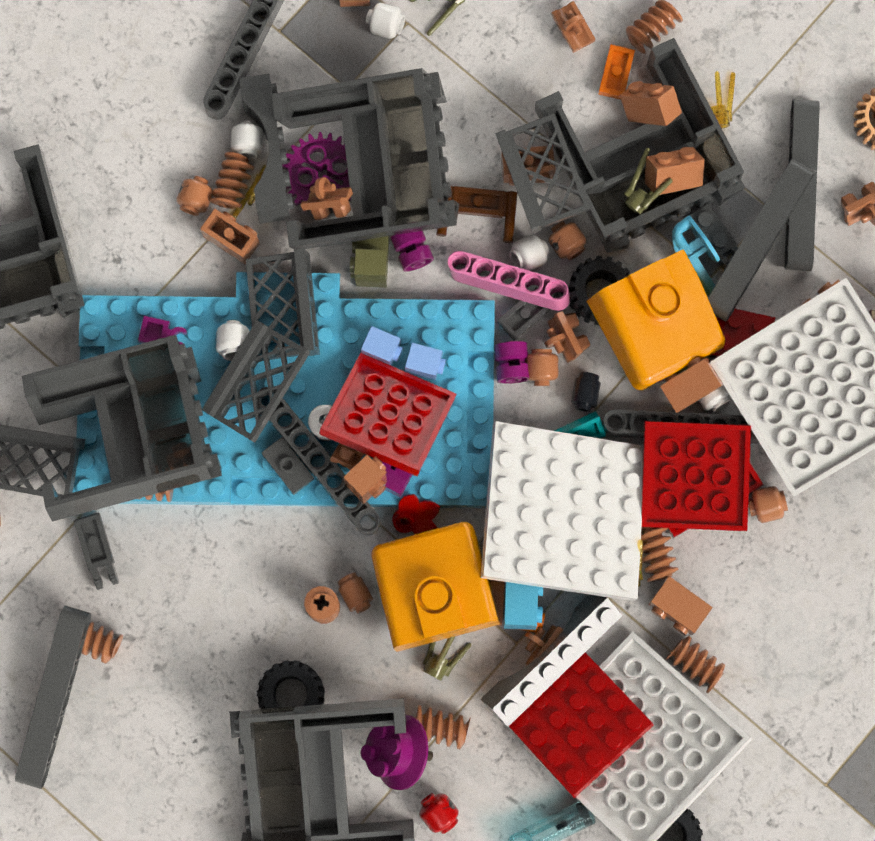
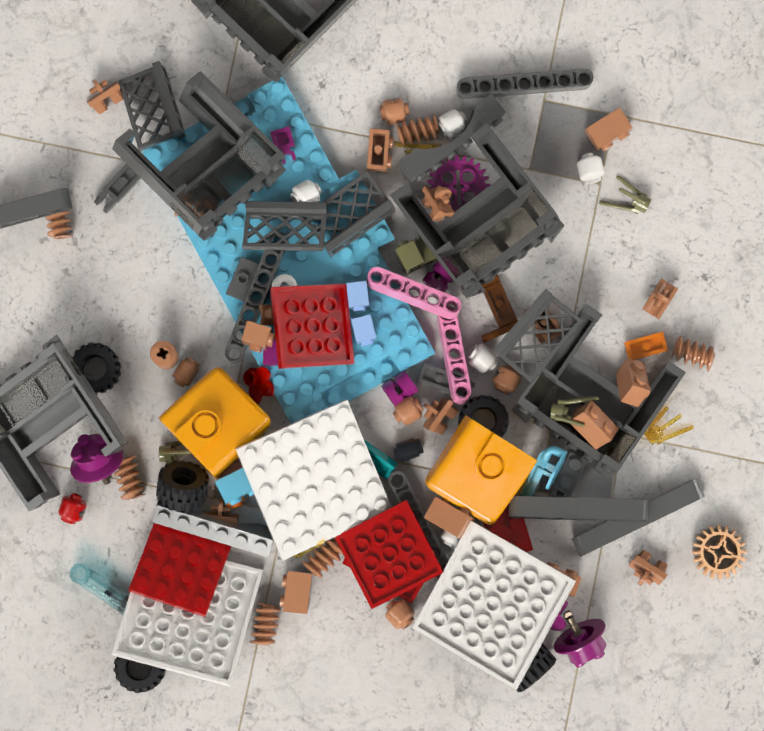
camera: 60 degrees right, 5 degrees up
(418, 271) = (420, 301): none -> bright pink beam
(486, 667) = (182, 486): none -> black tyre

